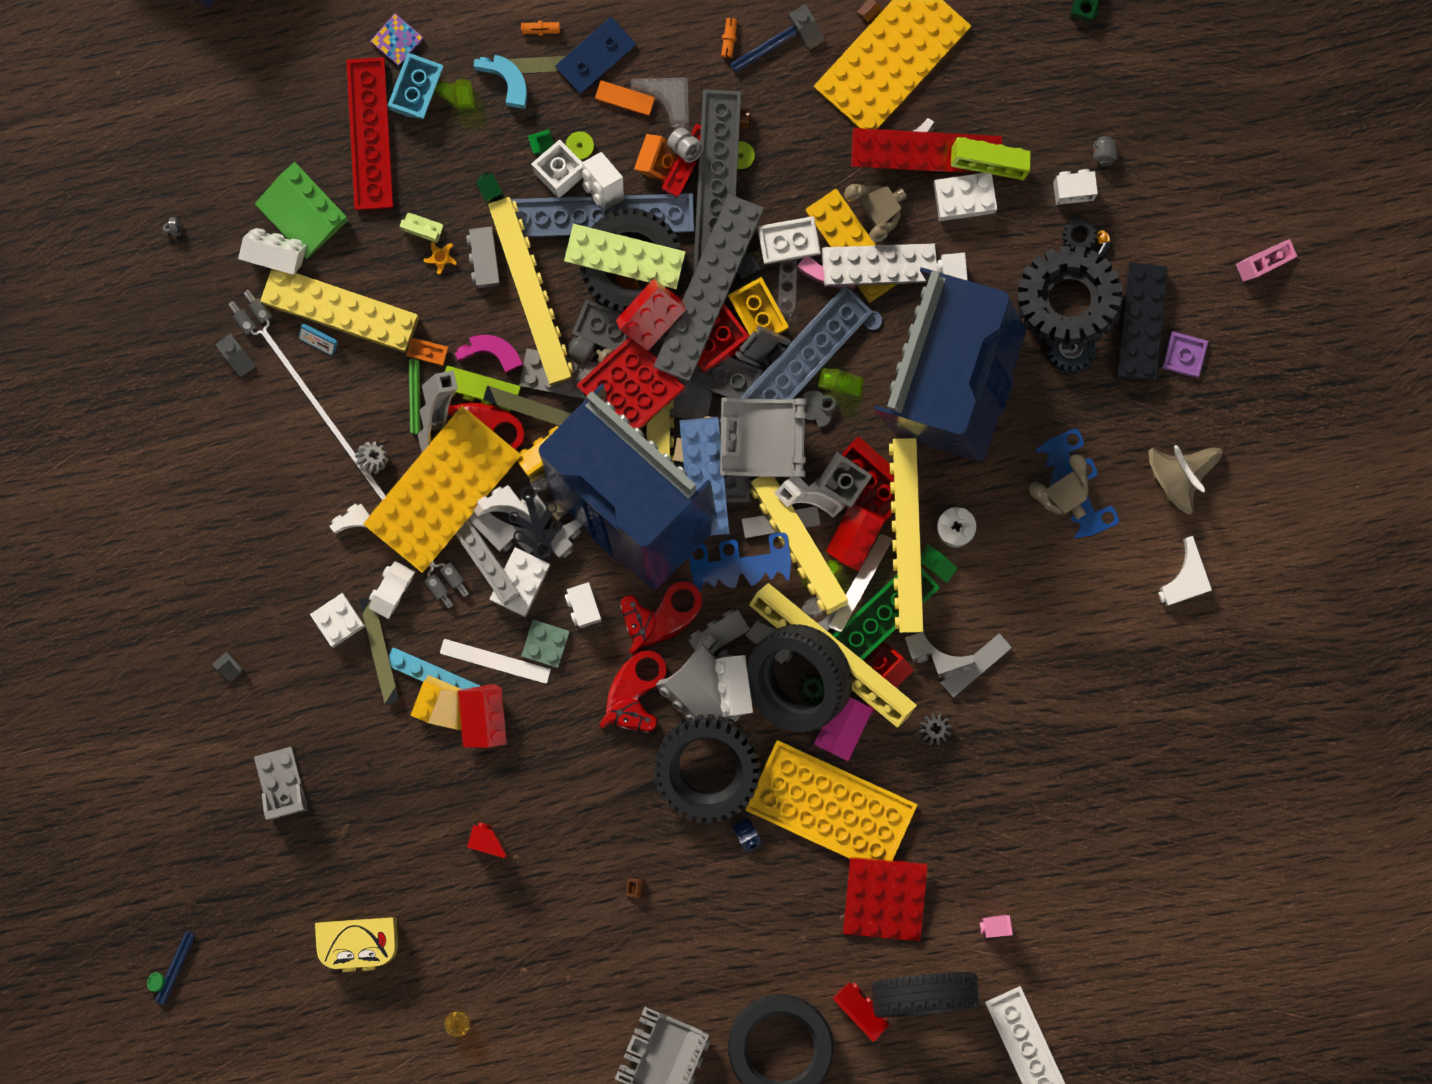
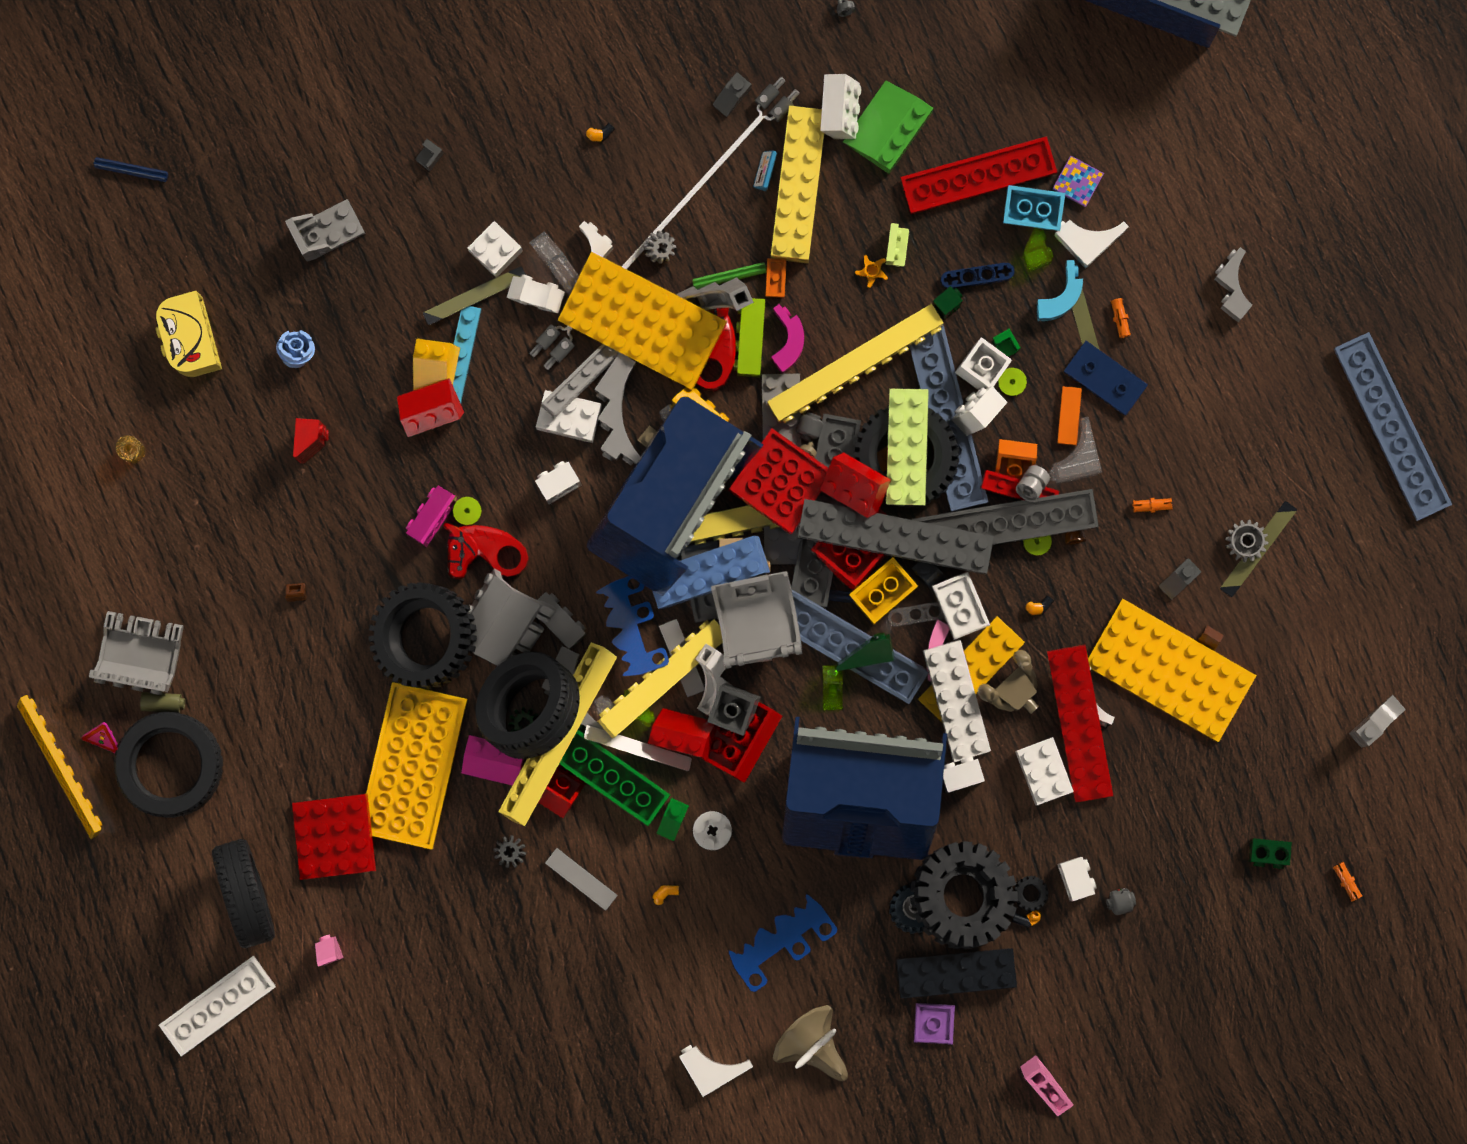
camera: 85 degrees right, 0 degrees up
(156, 982) = (113, 154): green piece -> none
(246, 493) = (600, 135): none -> arm
(363, 562) = (555, 261): none -> clear arch
(393, 837) = (295, 348): none -> light blue cone
(461, 44) = (1087, 244): none -> white arch
(468, 156) = (976, 272): none -> dark blue beam
(483, 257) = (880, 312): light grey brick -> none
(495, 661) = (488, 410): white sticker -> none
(506, 501) = (645, 382): white arch -> none
(525, 406) = (741, 384): olive sticker -> none
(536, 525) = (625, 419): black plant -> none
(545, 643) = (515, 454): sand green plate -> none
(588, 737) = (431, 515): none -> dark pink slope
(591, 702) = (467, 510): none -> lime piece
(656, 627) = (551, 555): red animal -> none
(719, 1036) = (162, 703): none -> olive brick
(734, 685) = (507, 643): white brick -> none
(747, 835) = (369, 689): dark blue bracket -> none
(760, 344) = (849, 598): dark grey container -> none
(763, 49) = (1148, 541): dark blue axle -> none
(806, 167) = (1039, 608): none -> arm
(815, 408) = (801, 668): dark grey plate -> none
(816, 335) = (873, 651): none -> dark green slope
(860, 1010) = (219, 831): red slope -> none
(873, 321) = (900, 707): sand blue piece -> none
(907, 535) = (690, 783): light yellow brick -> none
(945, 664) = (585, 821): light grey arch -> none
(990, 158) = (1086, 787): lime brick -> none
(1005, 588) = (663, 892): none -> light orange arm
(1066, 493) = (769, 933): dark tan torso -> none

